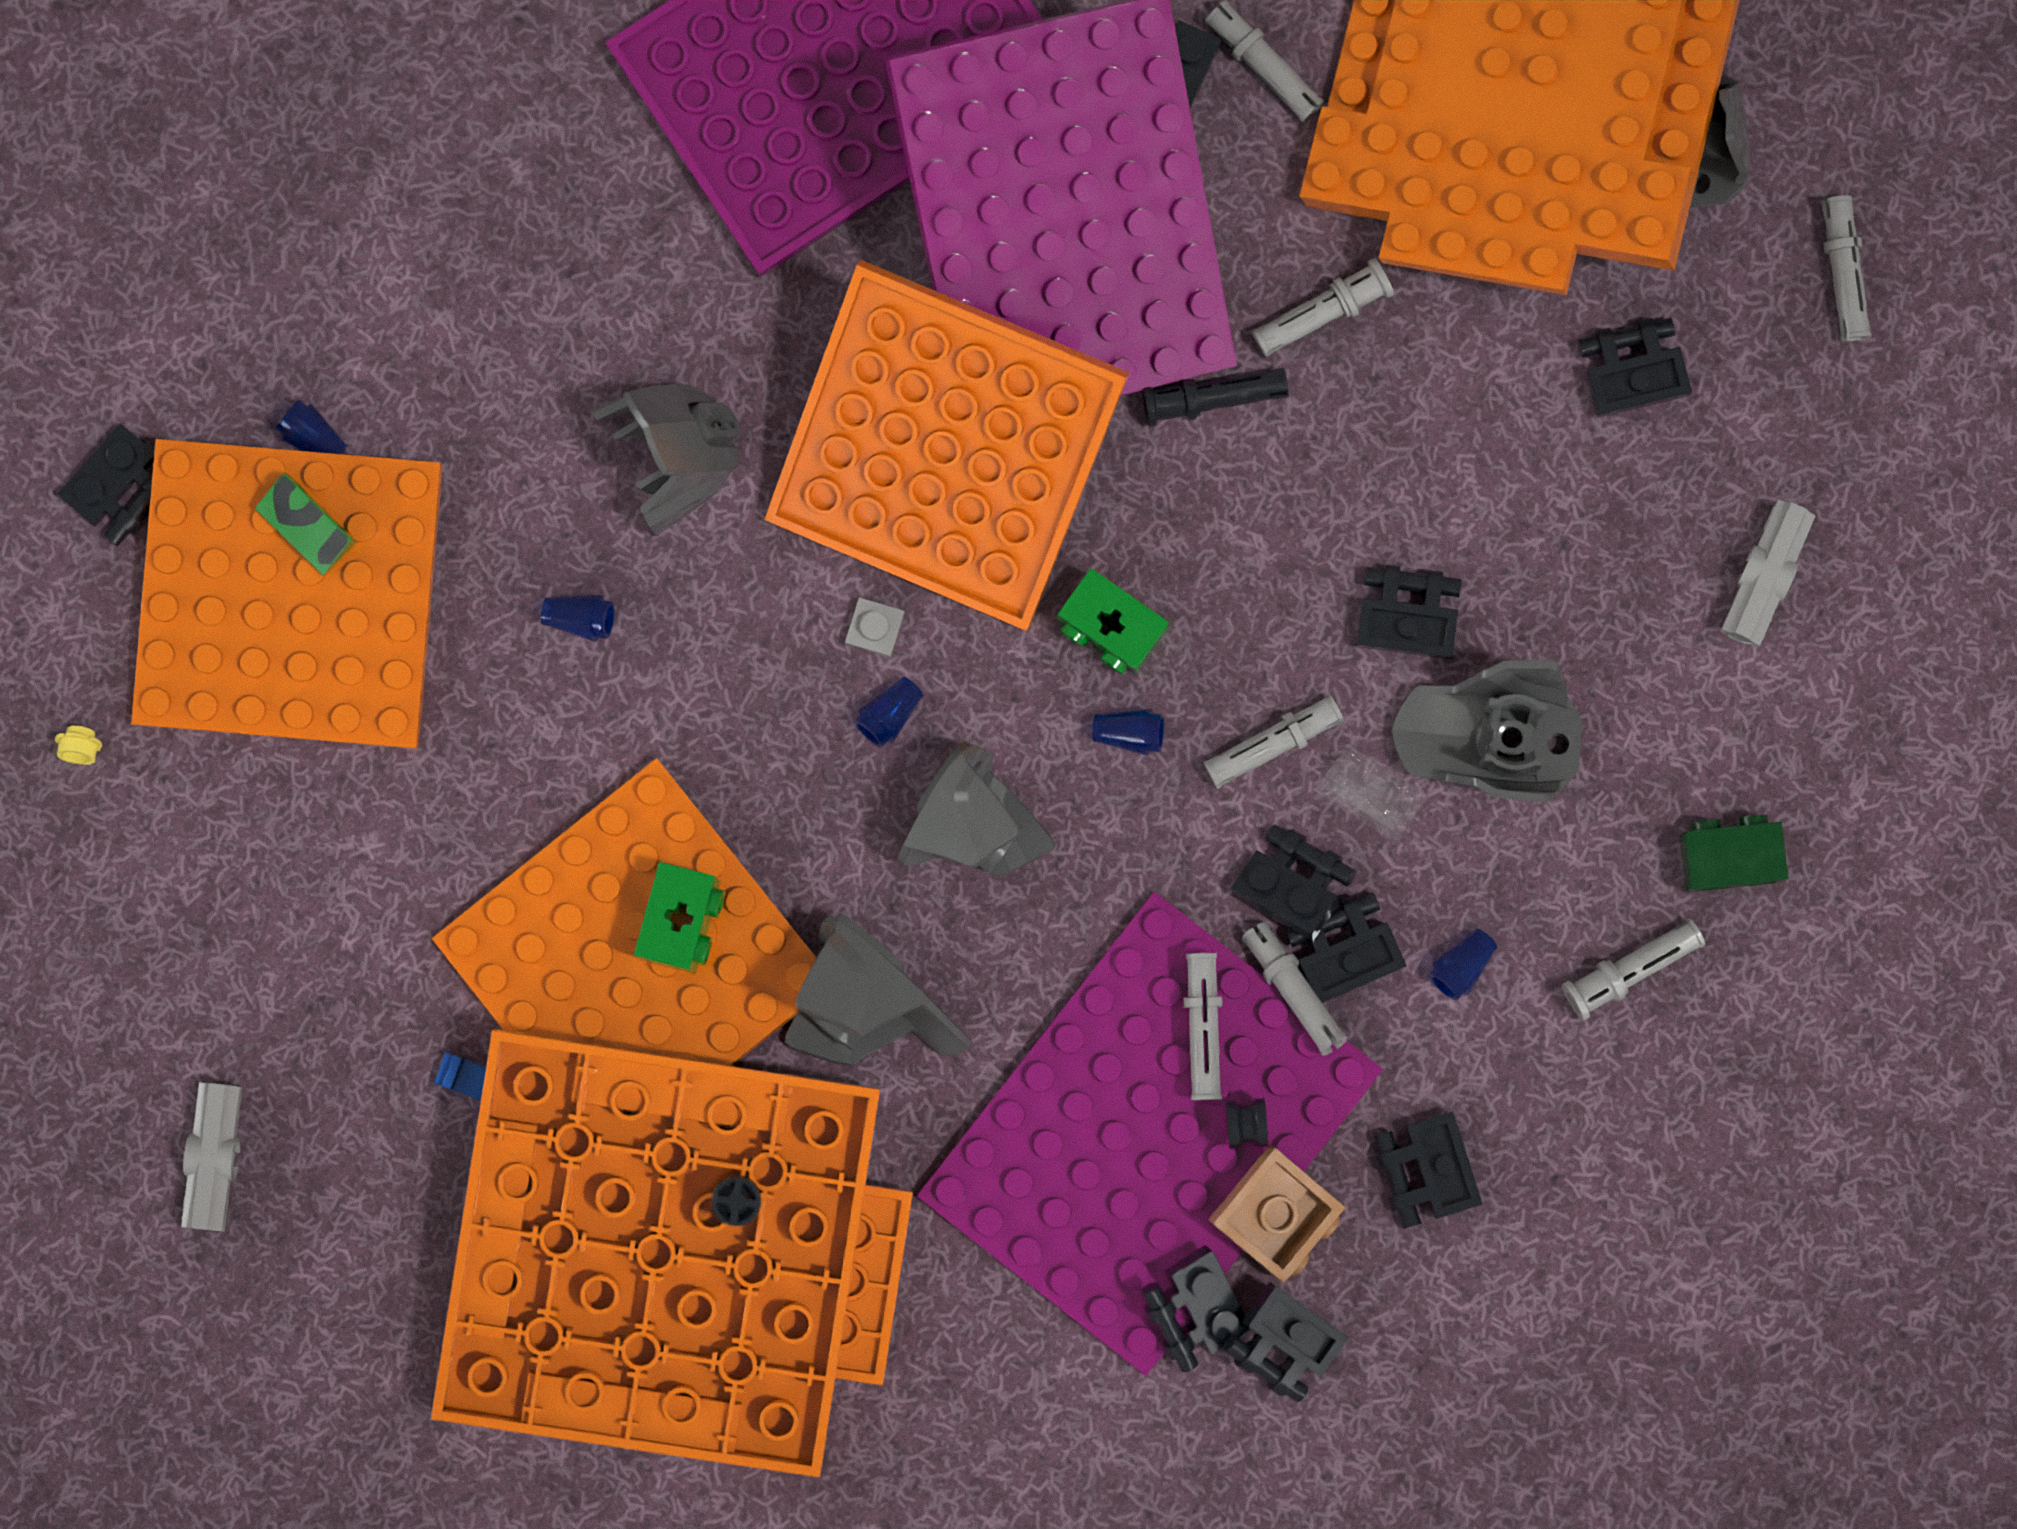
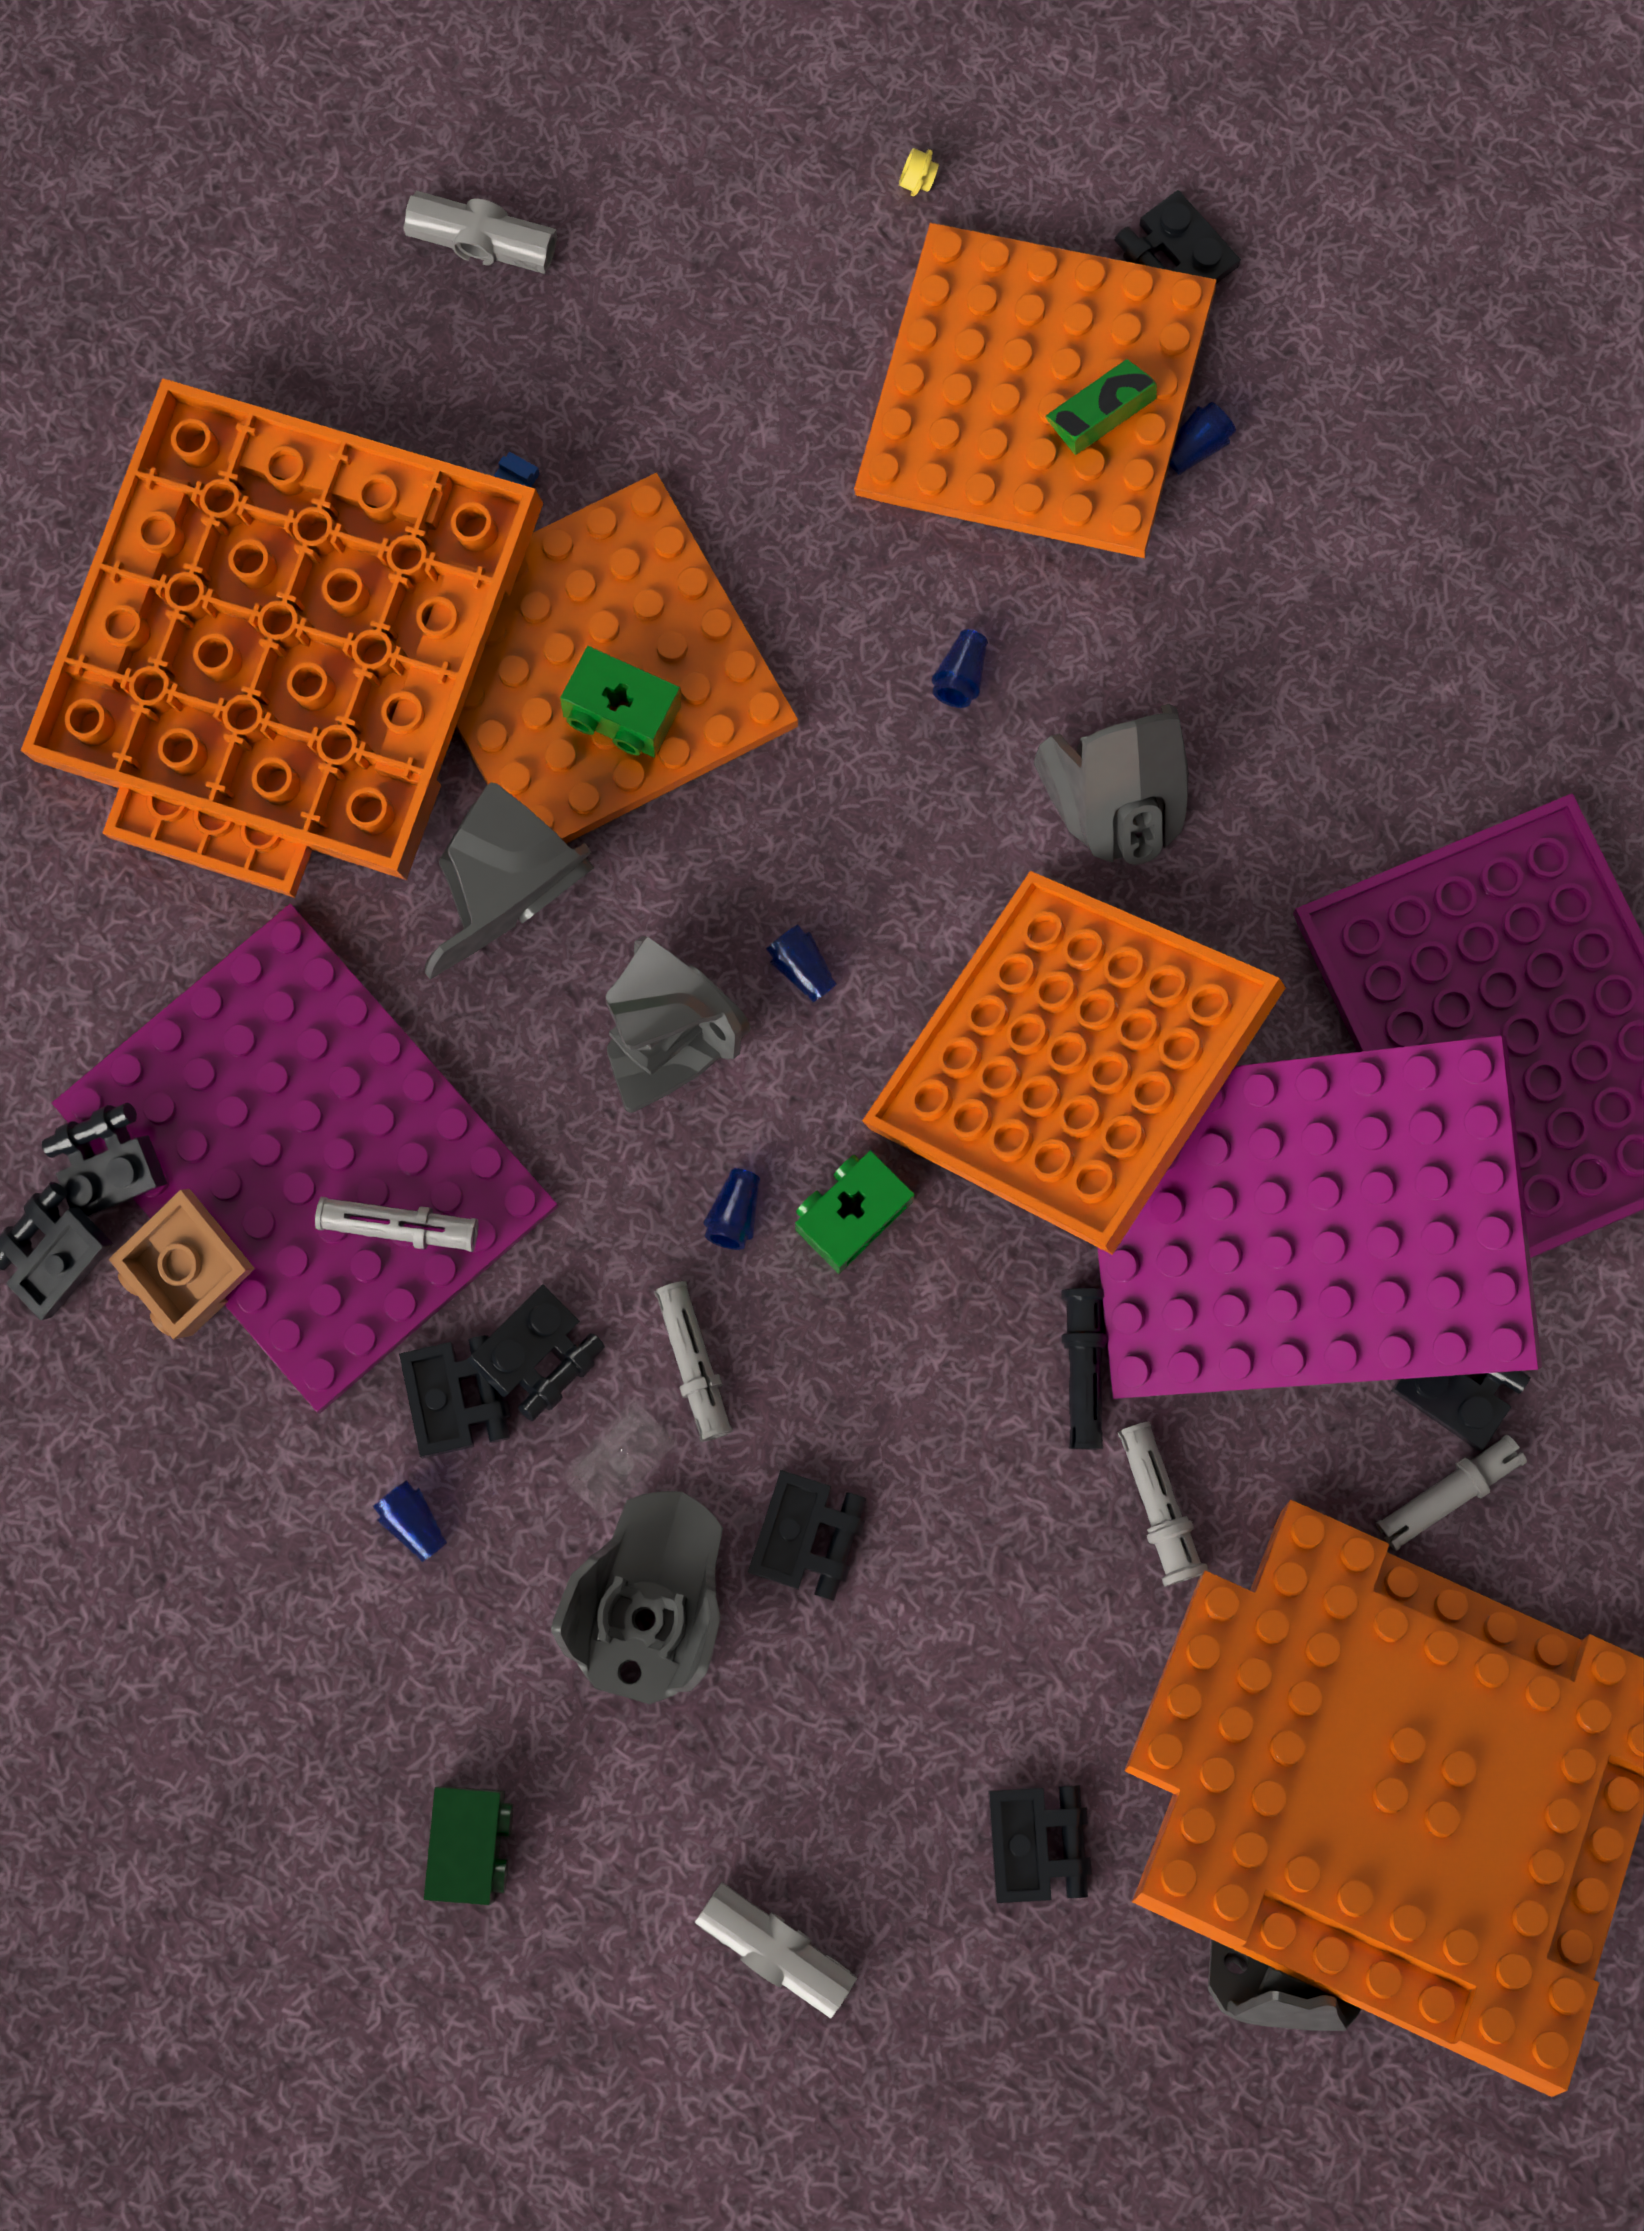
camera: 90 degrees right, 5 degrees down
(735, 1208) = (300, 694): black wheel -> none
(875, 627) = (895, 966): light grey plate -> none
(1246, 1123) = (283, 1248): black wheel -> none
(1283, 972) = (420, 1330): light grey pin -> none
(1442, 1164) = (198, 1456): black plate -> none
(1613, 979) = (360, 1682): light grey pin -> none
(1846, 269) = (1112, 2115): light grey pin -> none

